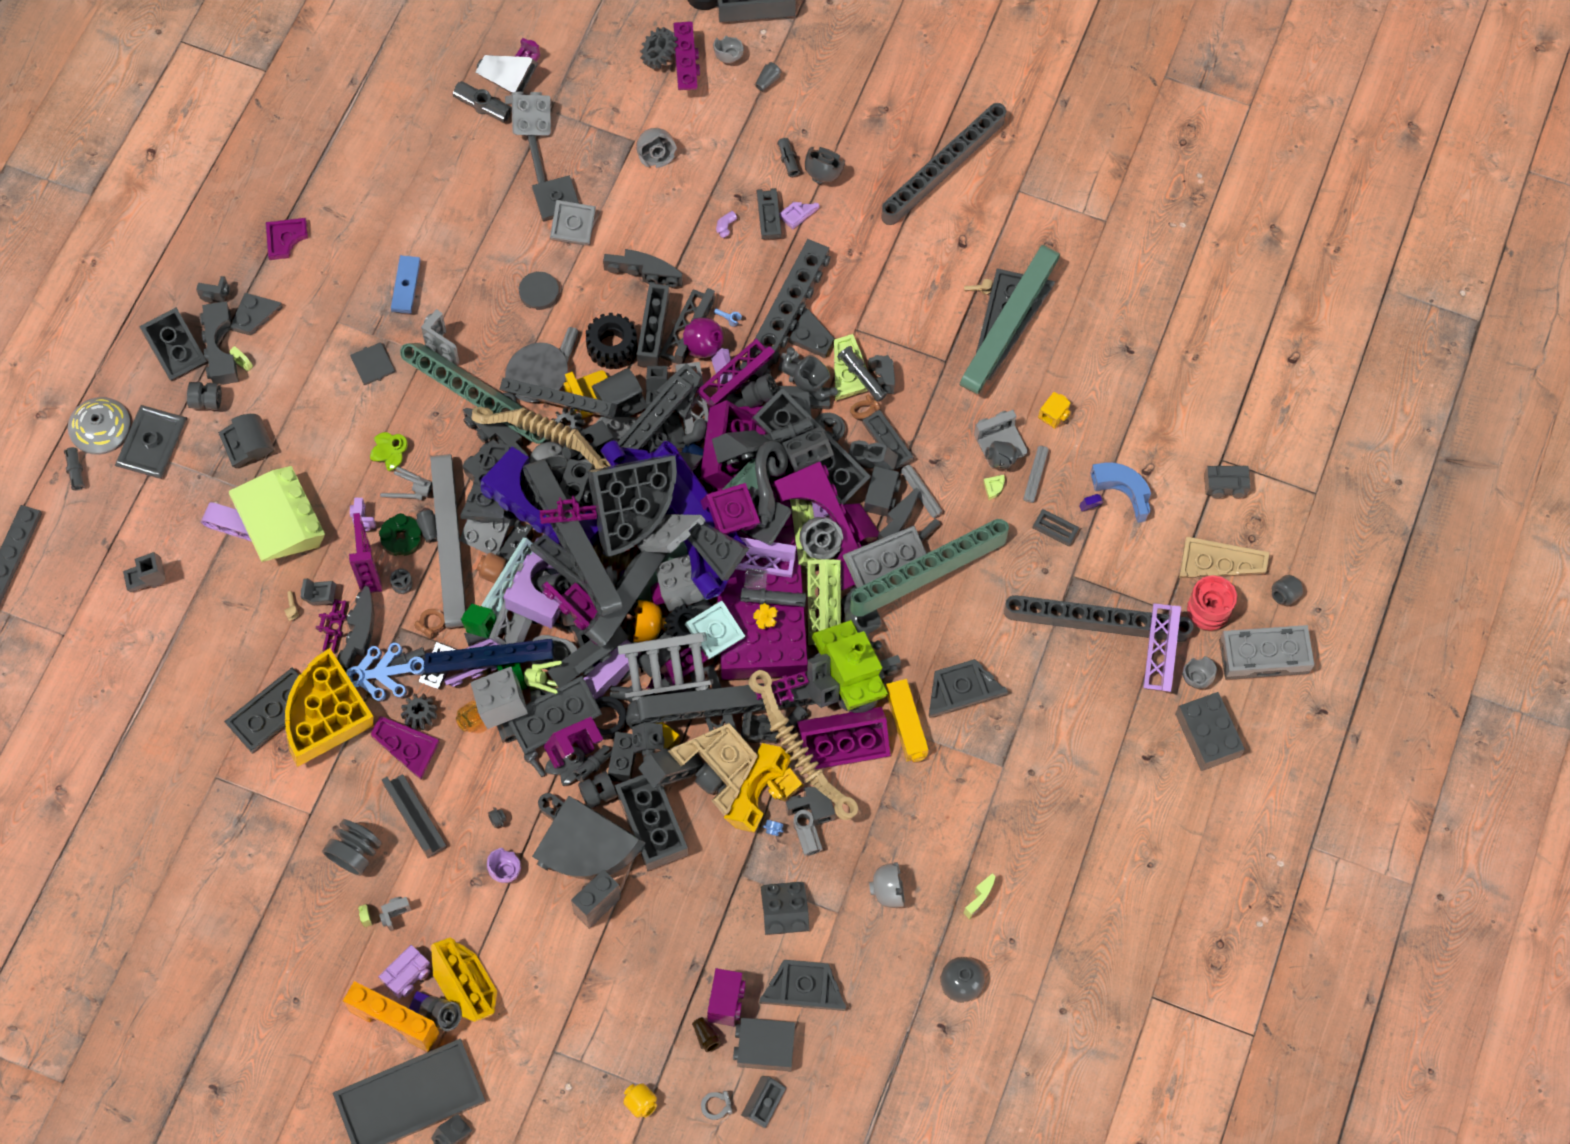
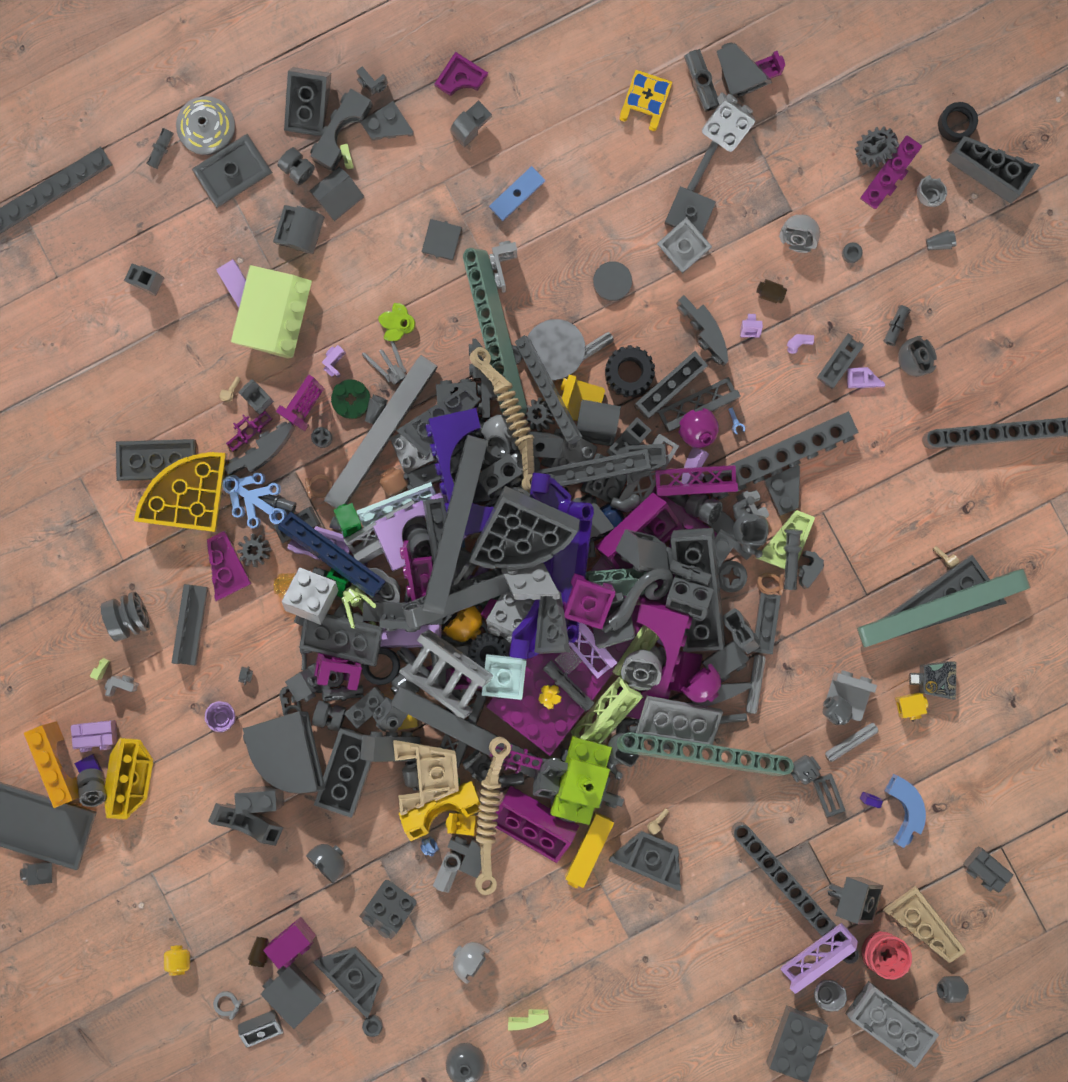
camera: 45 degrees right, 20 degrees up
(255, 392) = (337, 193): none -> dark grey slope
(322, 261) = (467, 123): none -> dark grey brick
(449, 143) = (647, 96): none -> yellow flag
(554, 782) = (303, 685): none -> dark grey brick
(561, 518) = (460, 500): magenta piece -> none
(602, 933) = (252, 824): none -> dark grey arch
(670, 204) = (771, 291): none -> dark brown brick
(678, 240) = (751, 327): none -> lavender tile
(698, 907) = (328, 861): none -> dark grey cylinder
(707, 134) = (852, 252): none -> dark grey tile
(856, 1015) = (372, 1025): none -> dark grey tile
(880, 514) = (703, 685): none -> magenta cylinder
(942, 662) = (653, 826): none -> tan hand
(994, 486) = (812, 725): yellowish green tile -> none
(1019, 519) = (805, 770): none -> dark grey head
(1055, 375) = (936, 679): none -> torso
(1149, 579) = (857, 899): none -> dark grey brick

